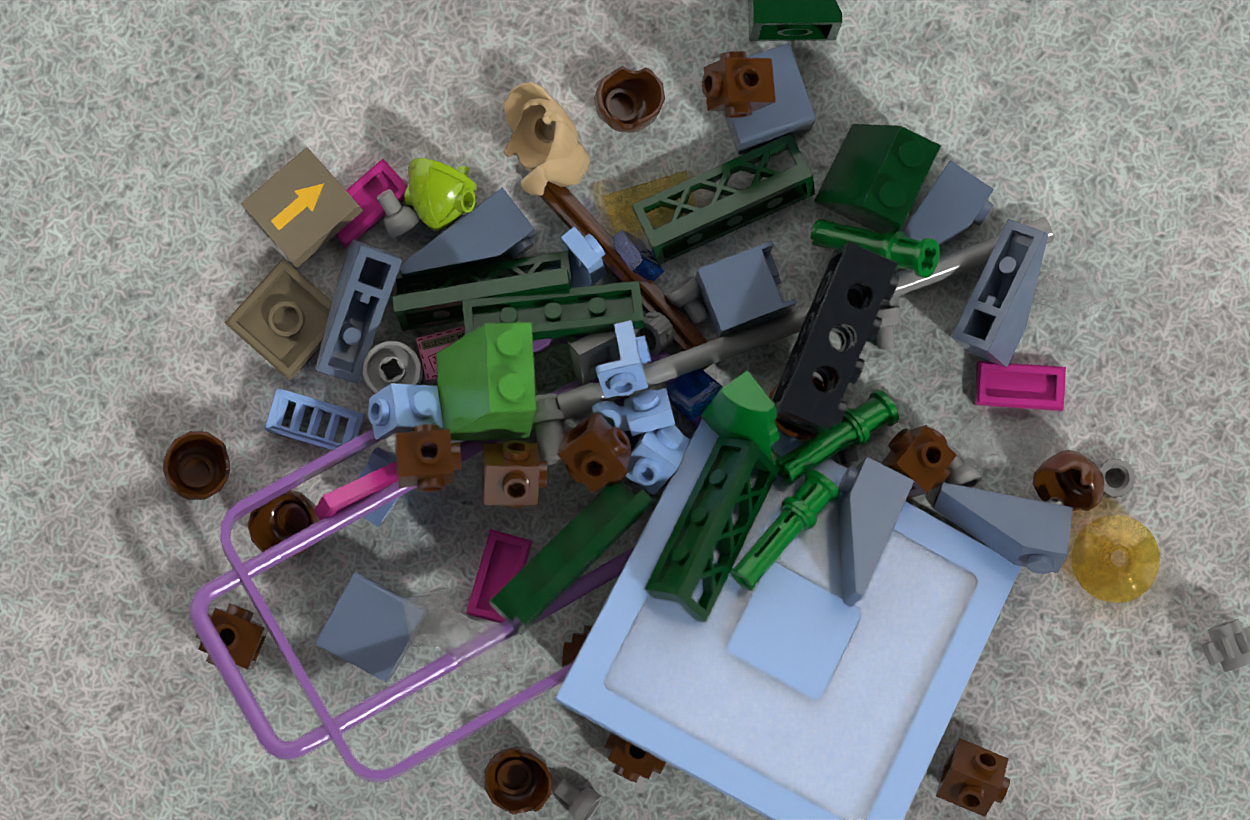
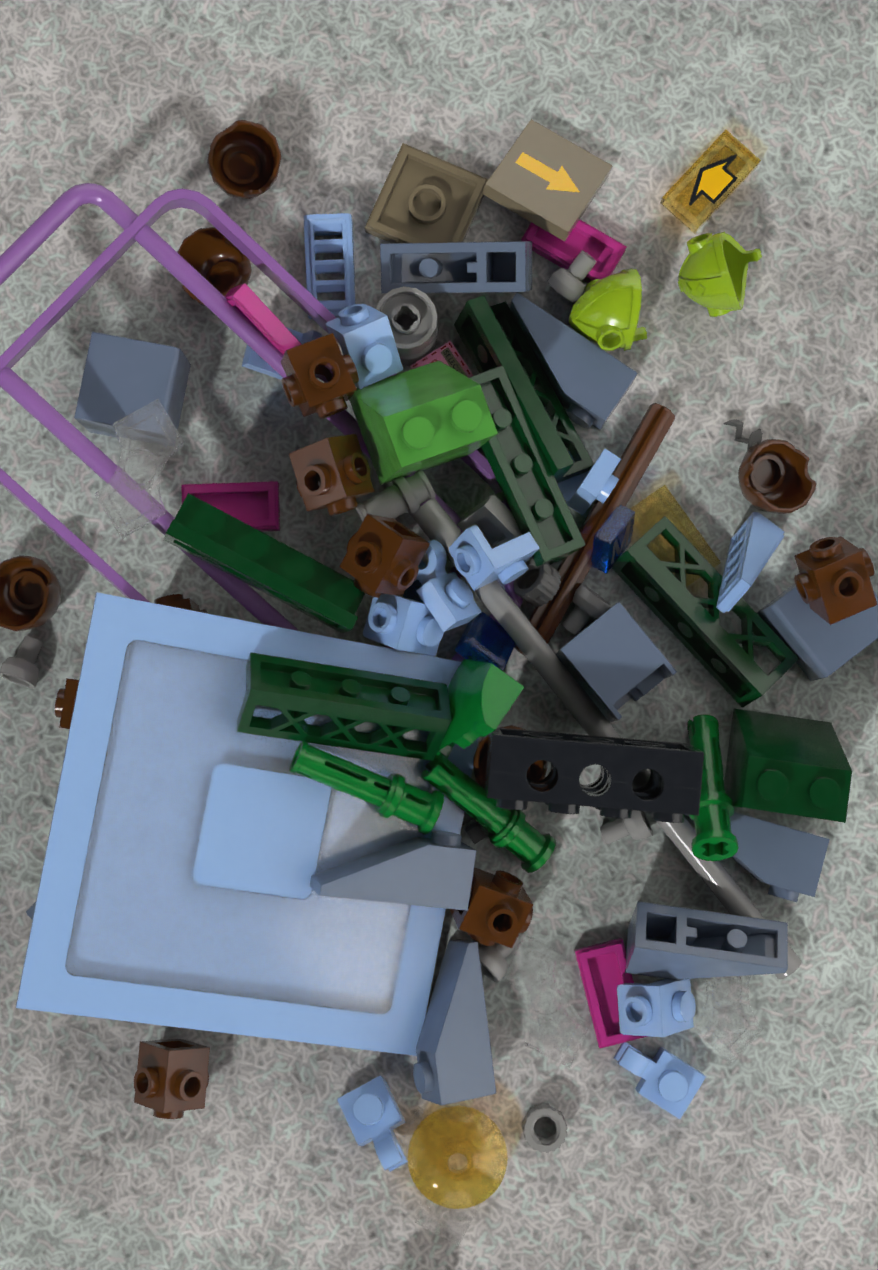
camera: 80 degrees right, 0 degrees up
(248, 635) = (74, 249): reddish brown brick -> none
(348, 66) = (710, 181): none -> clear yellow tile
(434, 89) = (716, 272): none -> lime helmet
(545, 150) = (702, 402): tan piece -> none
(587, 104) = (755, 437): none -> dark grey piece
(690, 147) = (746, 558): none -> light blue slope
(1044, 351) = (656, 1007): none -> light blue bracket
(1060, 619) = (372, 1117): none -> light blue plate
(1071, 480) = (526, 1082): reddish brown hair -> none
(1105, 364) = (663, 1079): none -> light blue plate

